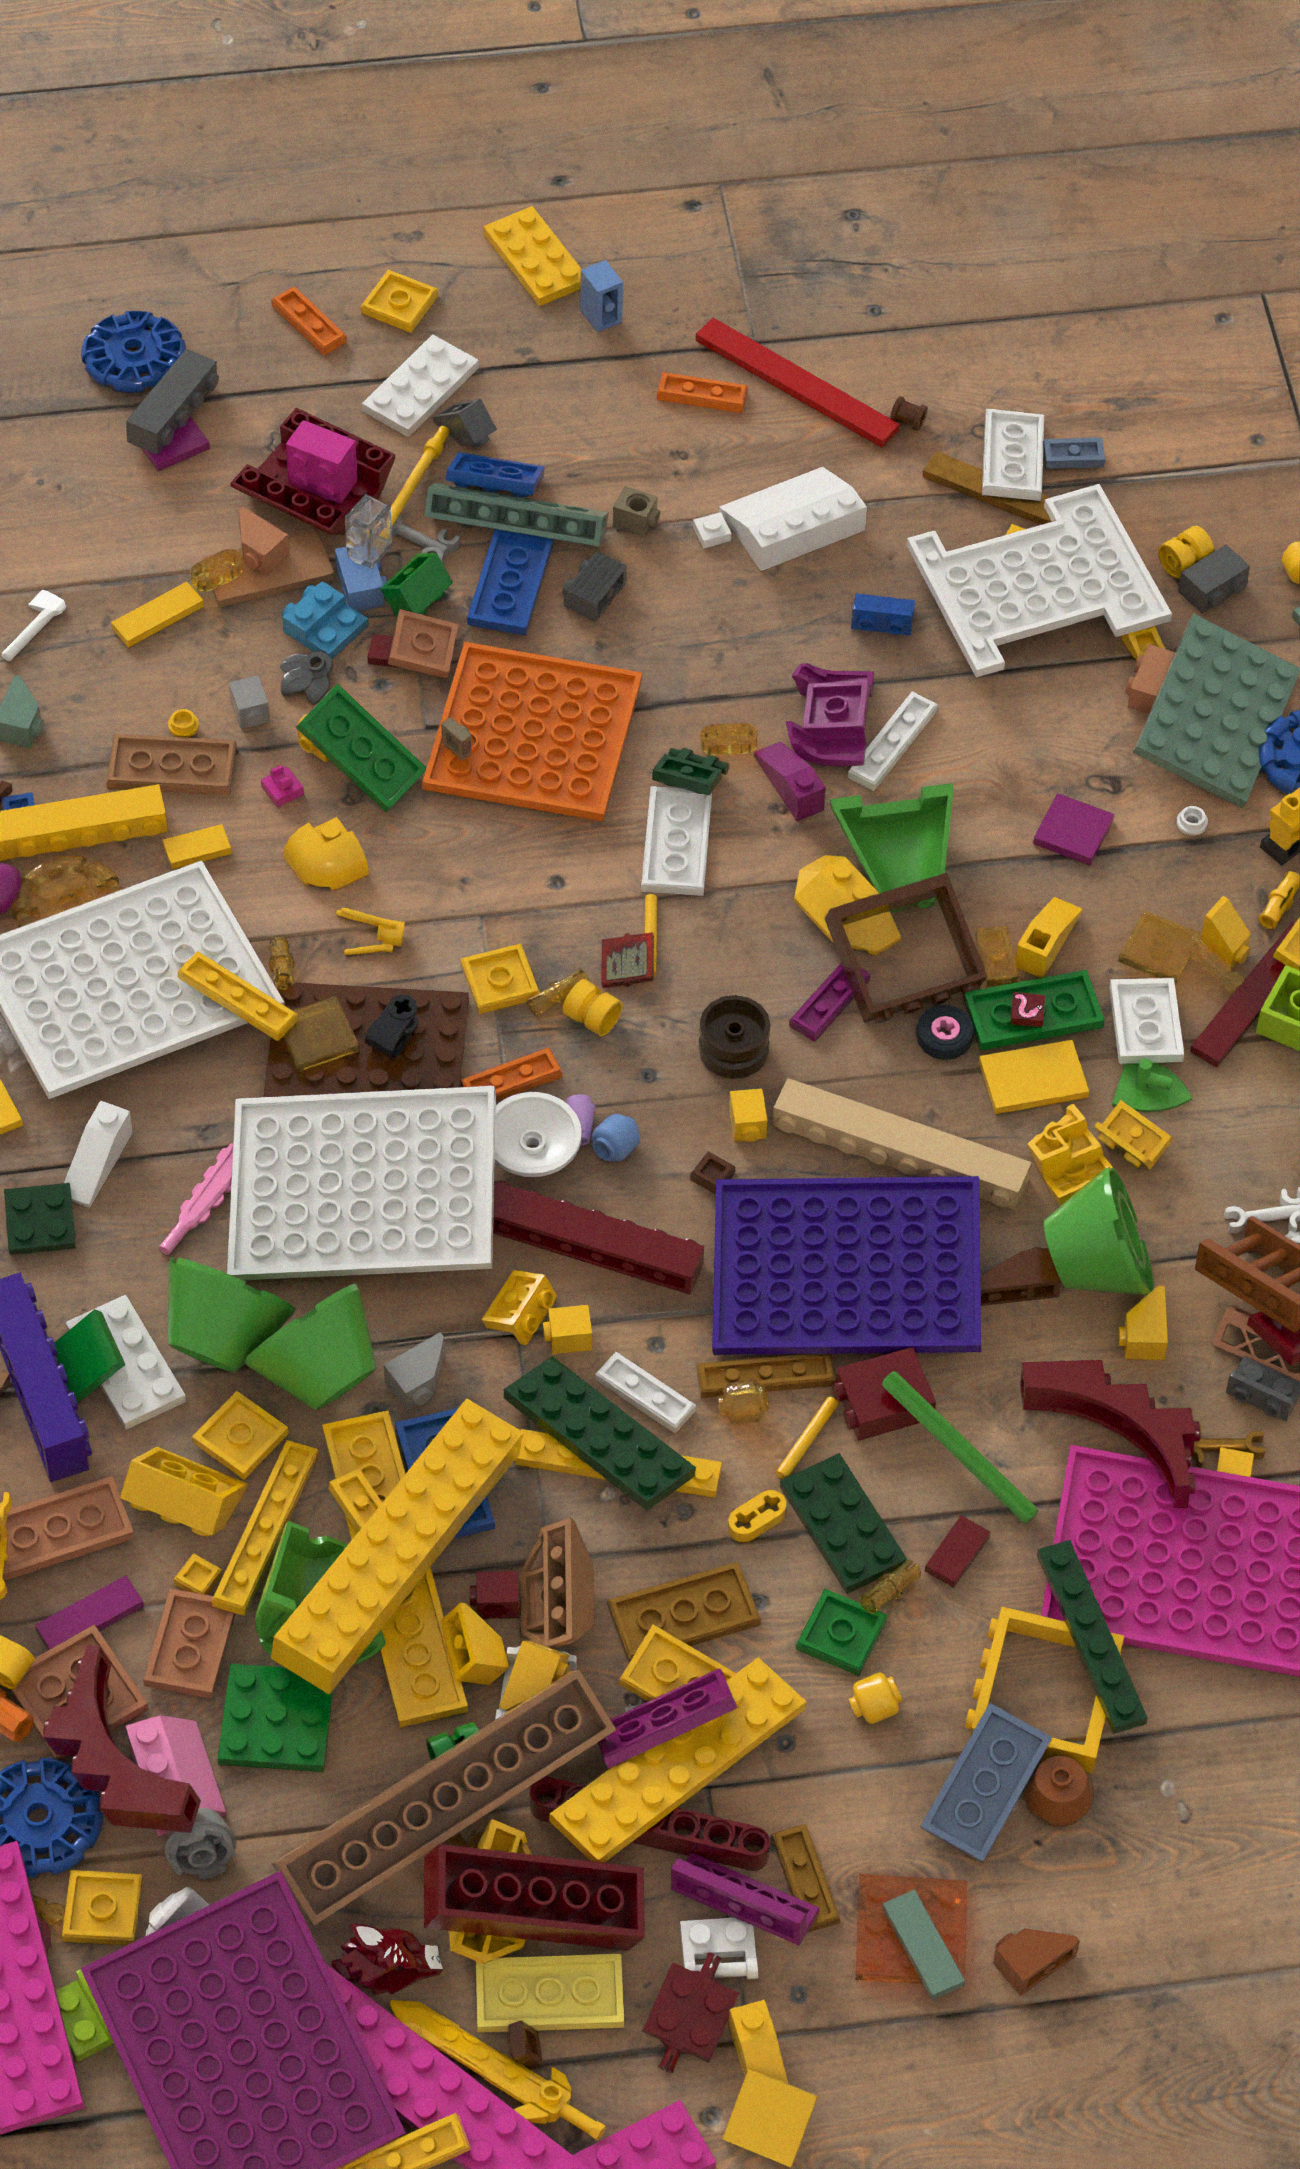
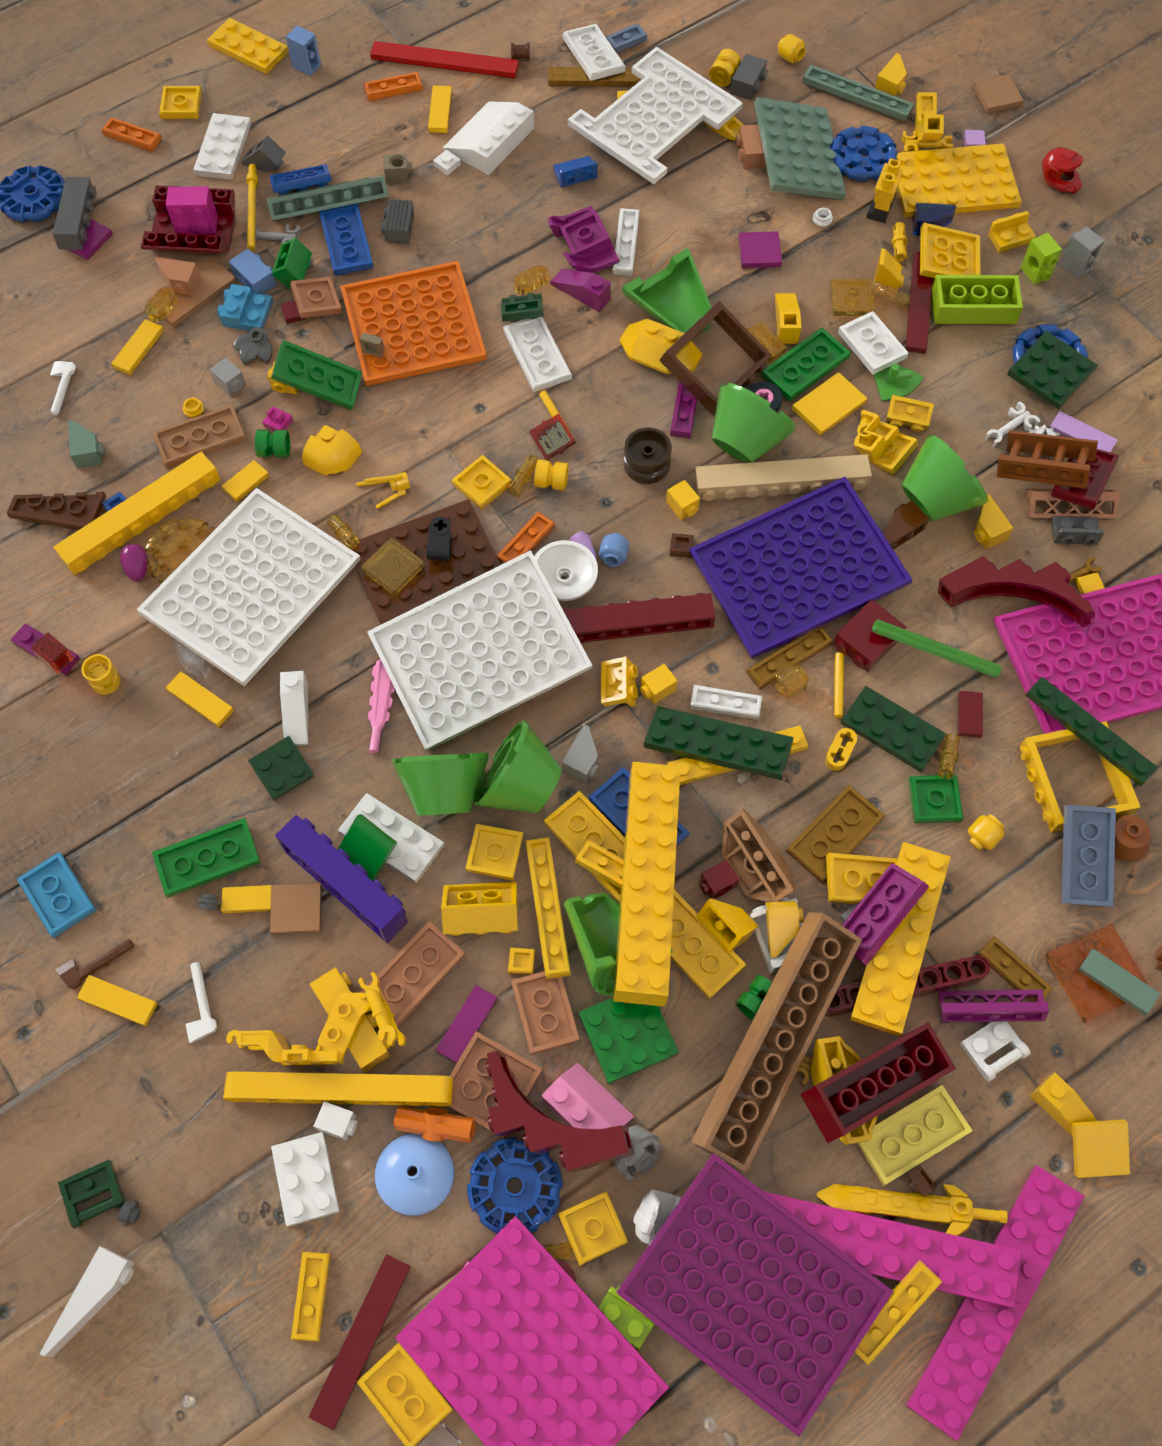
camera: 25 degrees left, 10 degrees up
(237, 996) = (329, 564): yellow tile -> none
(259, 814) = (273, 443): none -> green wheel
(368, 531) = (247, 239): clear brick -> none
(378, 1952) = (801, 1169): dark red piece -> none
(690, 2012) = (1007, 1102): dark red plate -> none
(747, 451) = (440, 109): none -> yellow tile
(883, 1054) = (747, 424): none -> bright green cone
(1027, 1009) = (806, 364): dark red tile -> none

